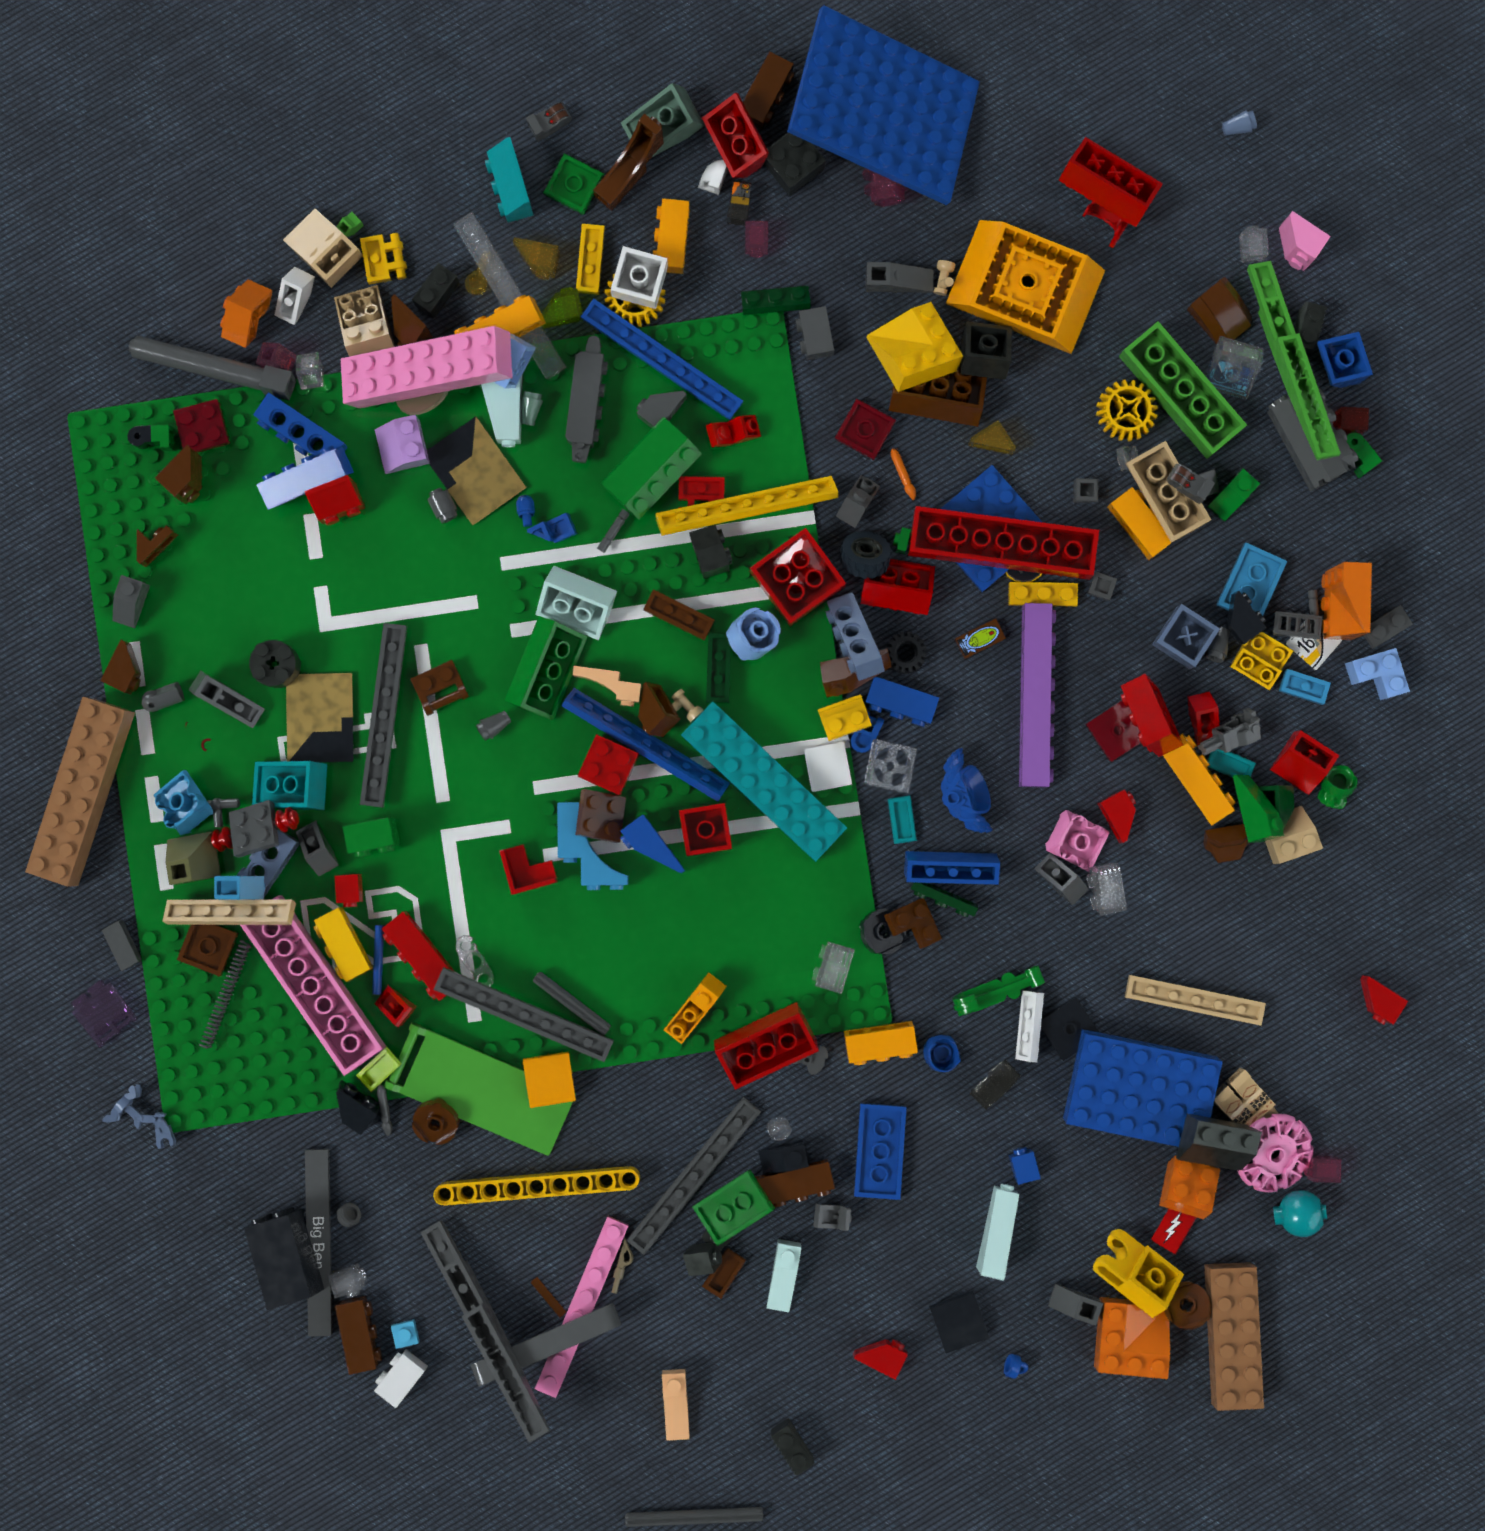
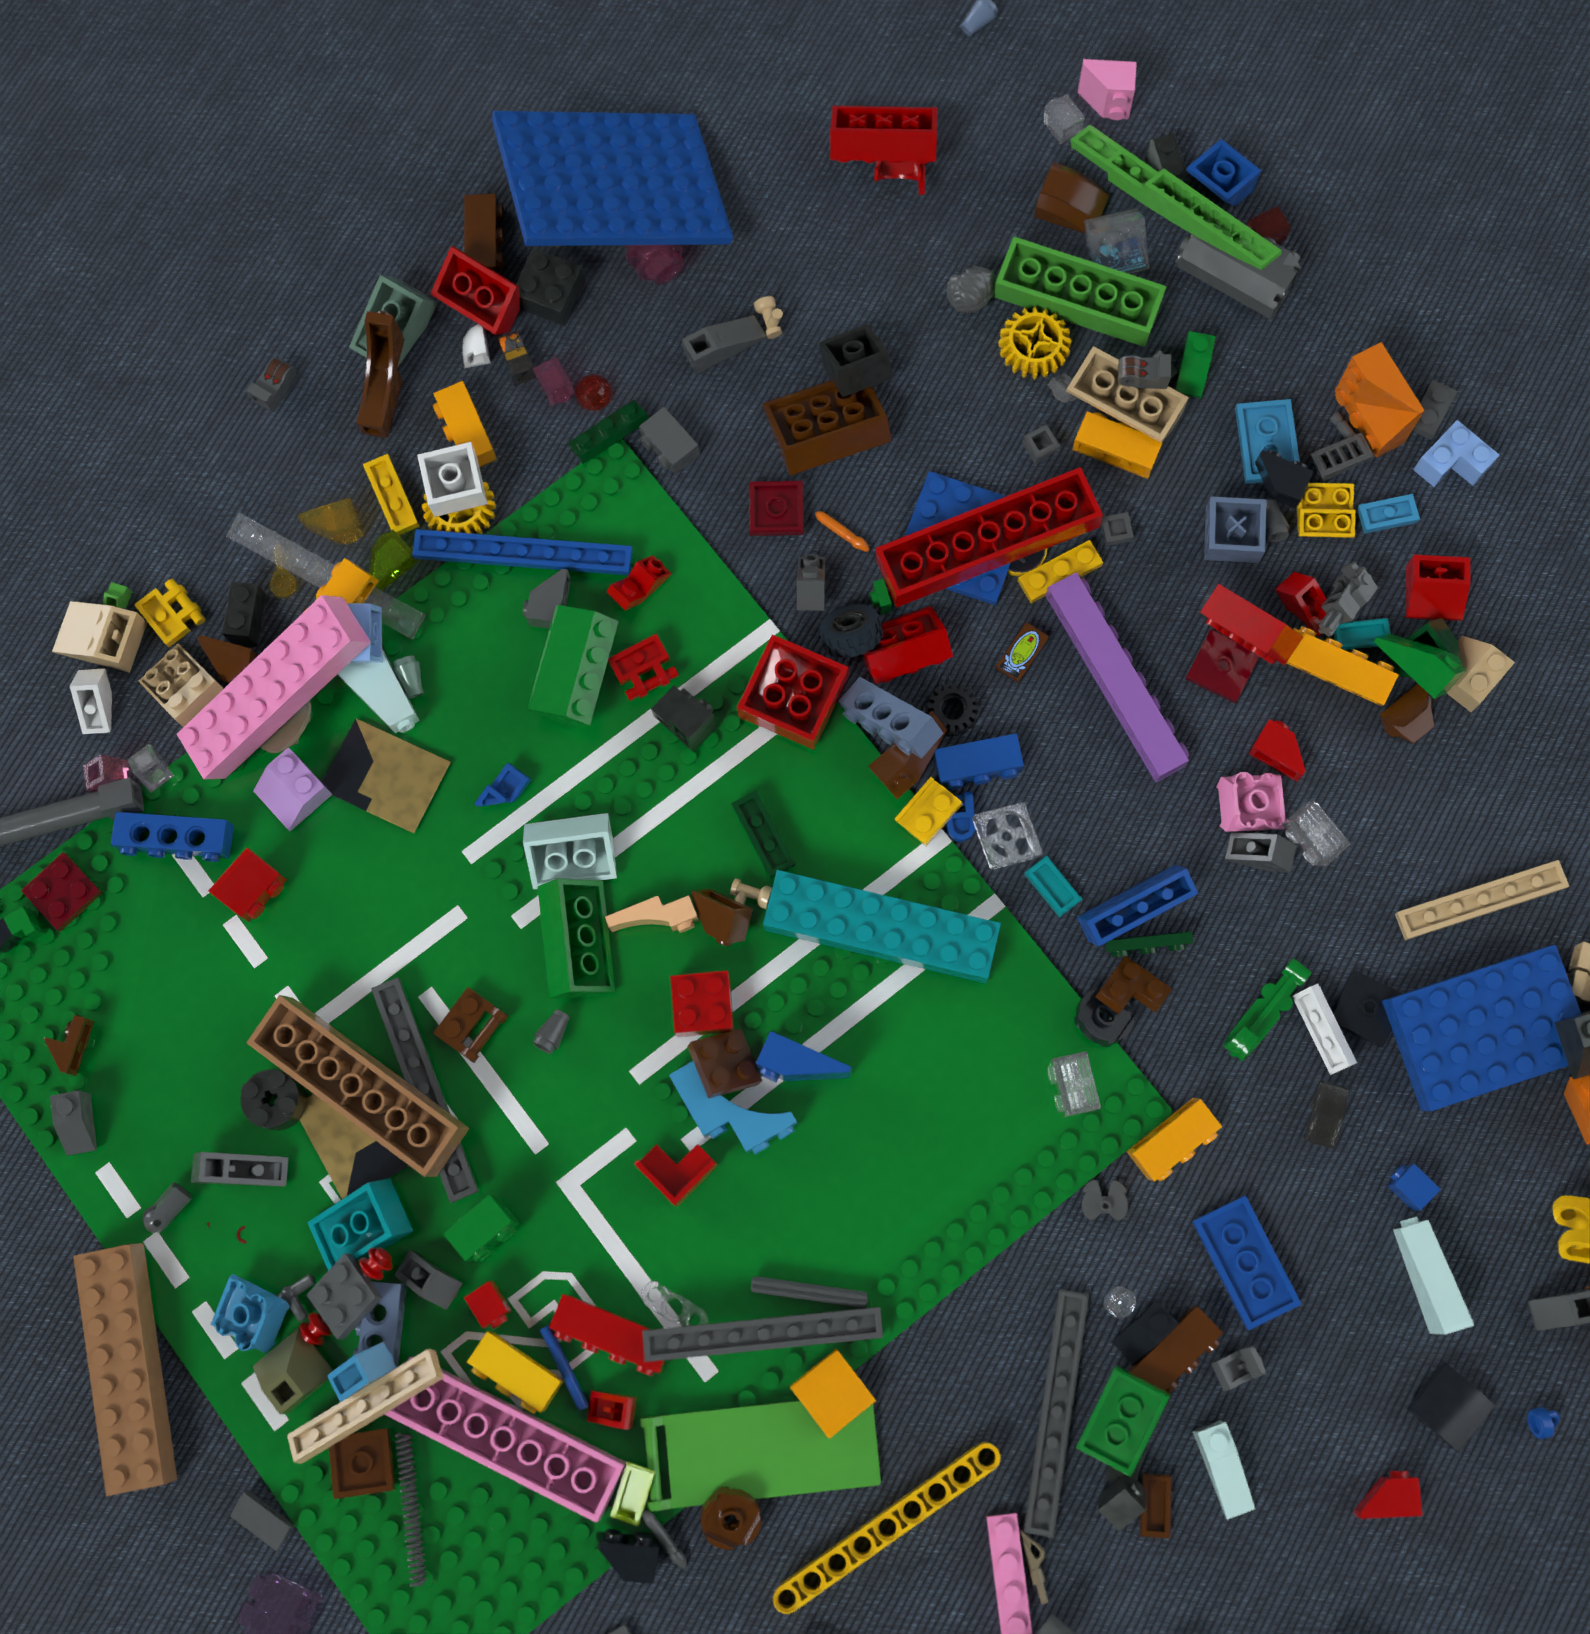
camera: 20 degrees left, 10 degrees down
(123, 669) = (105, 1202): reddish brown slope -> none
(183, 475) = (65, 951): reddish brown slope -> none
(243, 312) = (46, 746): orange brick -> none
(310, 474) = (190, 892): brick -> none
(337, 688) = (358, 1086): none -> medium nougat brick
(442, 505) = (369, 828): dark grey brick -> none
(508, 181) = (262, 462): teal slope -> none
(525, 509) = (462, 784): blue cylinder -> none
(573, 184) = (332, 432): green tile -> none
(585, 399) = (464, 637): dark grey hinge -> none
(612, 532) = (568, 755): dark grey wheel -> none
(645, 744) = (730, 958): blue plate -> none
(678, 615) = (688, 802): reddish brown plate -> none
(695, 1008) = (949, 1218): light orange slope -> none
(705, 829) = (848, 1013): red brick -> none
(746, 505) = (695, 648): yellow plate -> none
(753, 634) = (780, 775): light blue brick -> none
(765, 1045) = (1051, 1214): red brick -> none
(781, 262) = (593, 392): none -> clear red brick
(827, 766) = (940, 874): white sticker -> none
(915, 347) = (781, 395): yellow slope -> none
(941, 1053) = (1247, 1114): blue hair -> none
(966, 793) = (1104, 818): blue piece -> none
(993, 288) = (827, 299): light orange slope -> none
(993, 439) = (915, 445): clear yellow slope -> none
(1104, 344) = (971, 289): none -> dark grey hair
(1312, 650) = (1372, 474): sticker -> none
(1337, 787) = (1488, 594): green hair -> none
(1366, 455) = (1309, 255): green leg -> none

